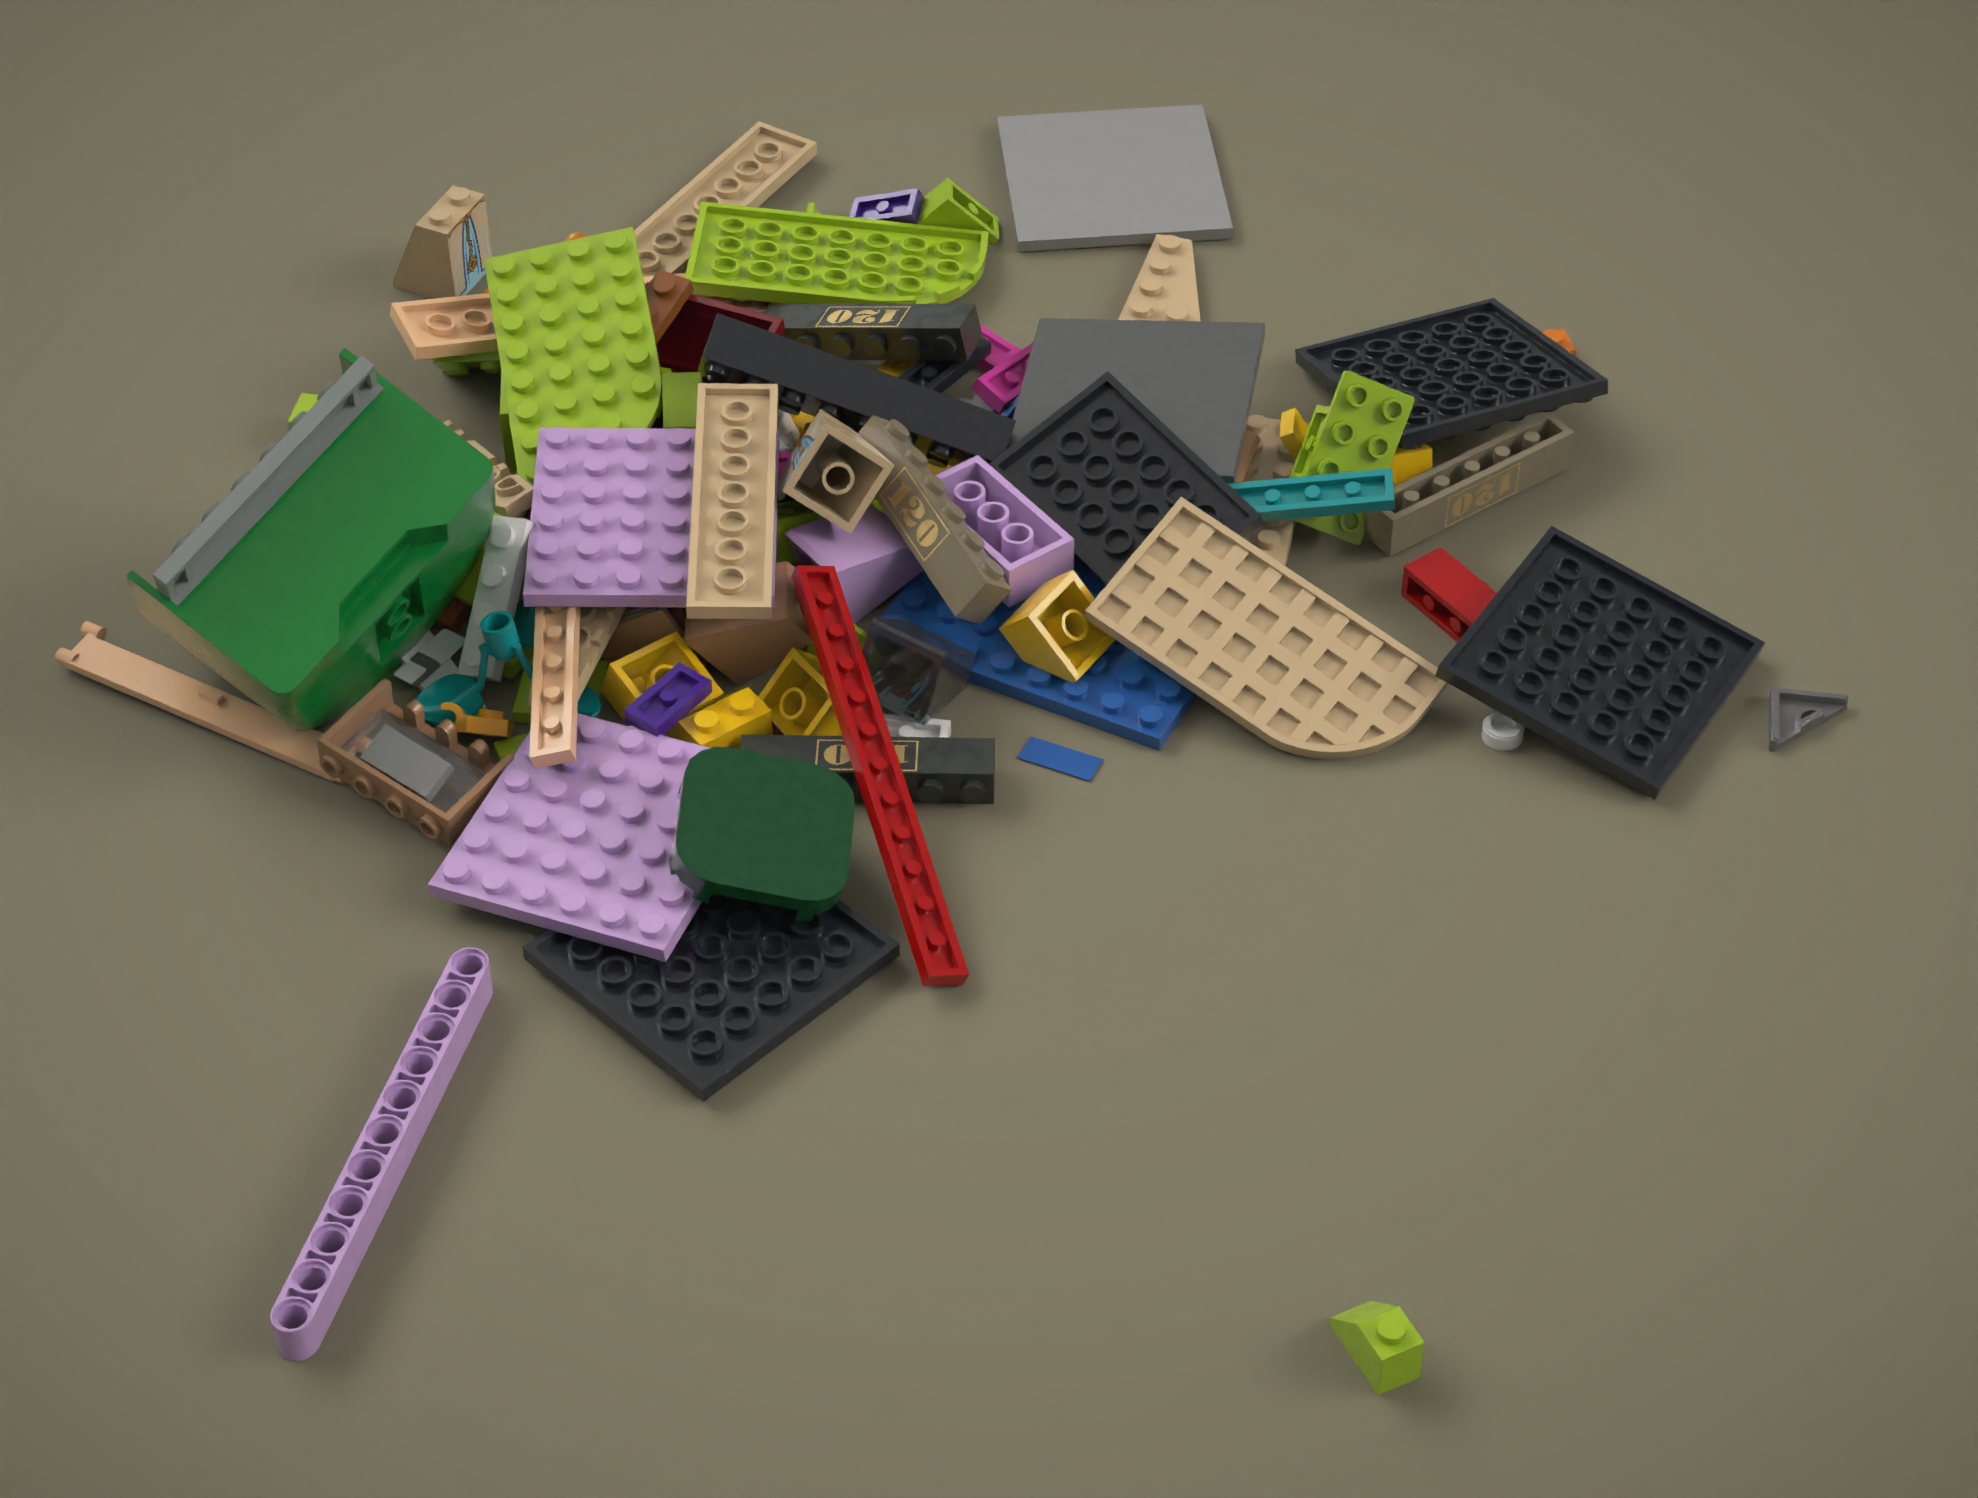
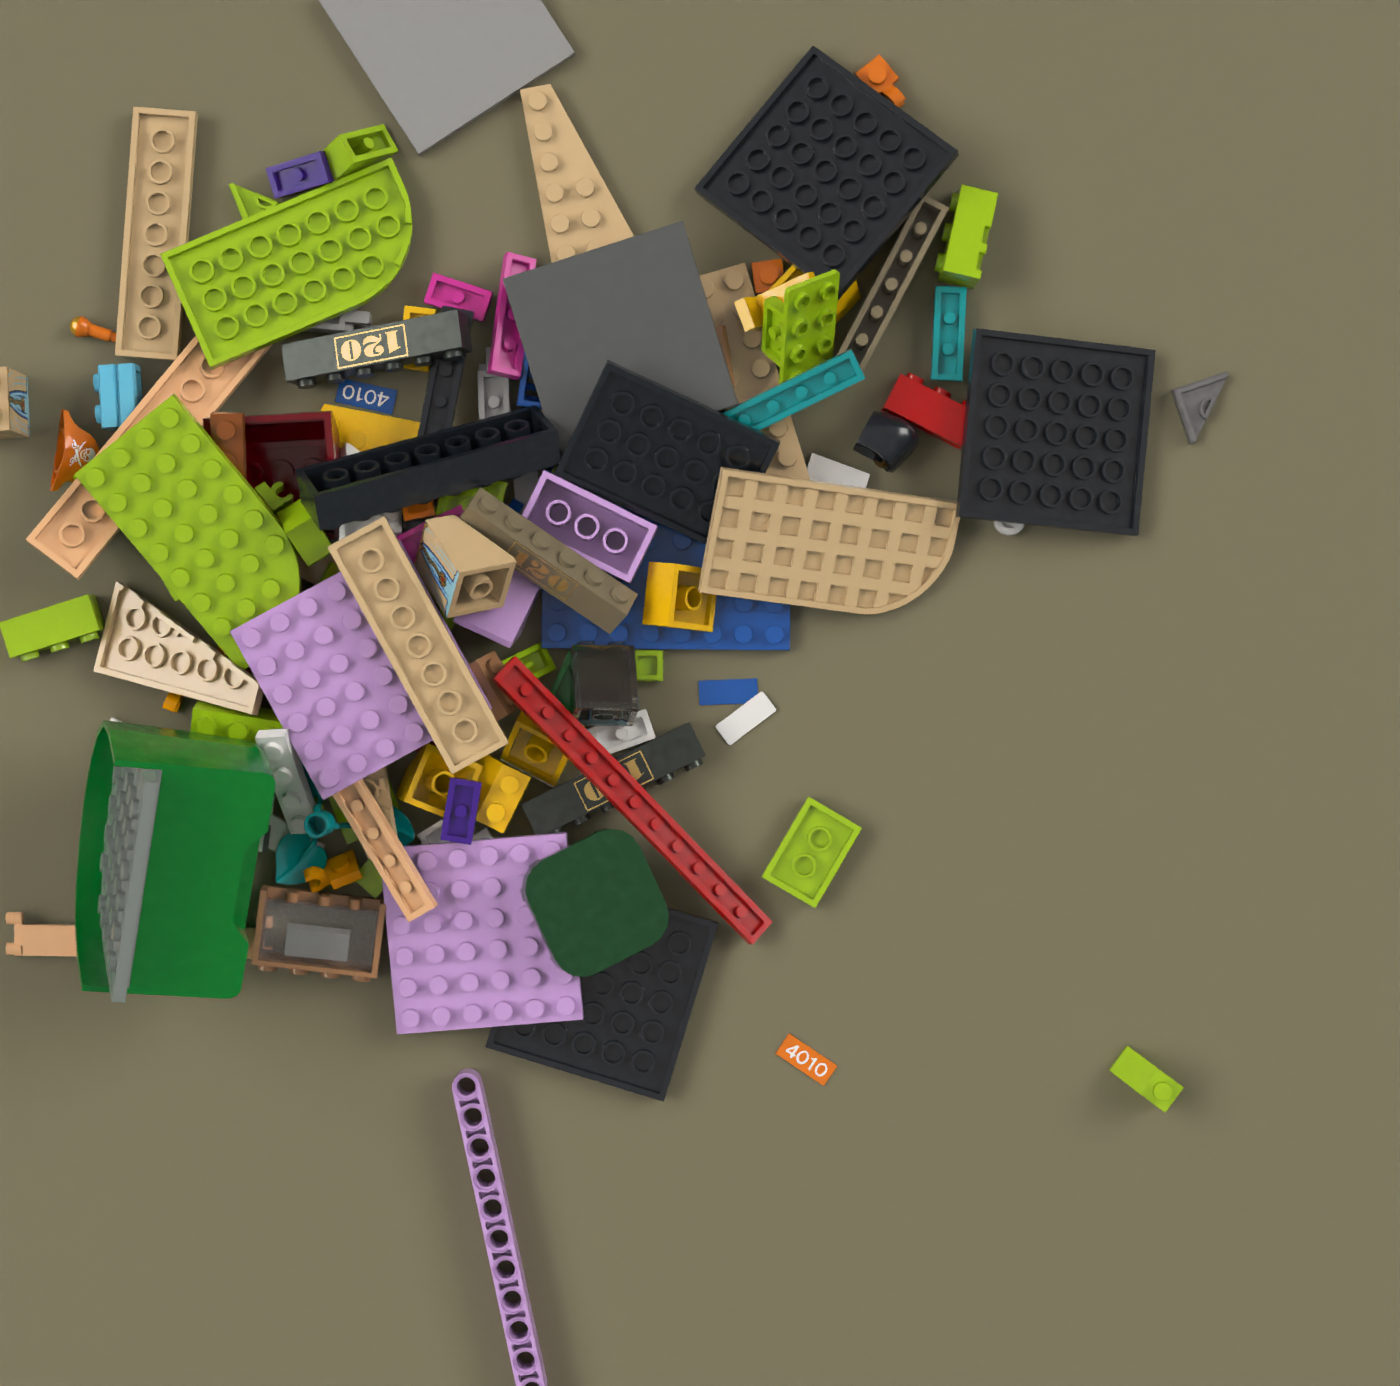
camera: 25 degrees left, 45 degrees up
(918, 1142) = (806, 1059): none -> orange sticker
(979, 698) = (649, 665): none -> lime tile
(1064, 928) = (811, 852): none -> lime plate
(1065, 787) = (745, 718): none -> white sticker
(1400, 597) = (887, 440): none -> black piece
(1515, 546) = (948, 333): none -> teal plate
(1581, 481) = (966, 236): none -> lime wedge

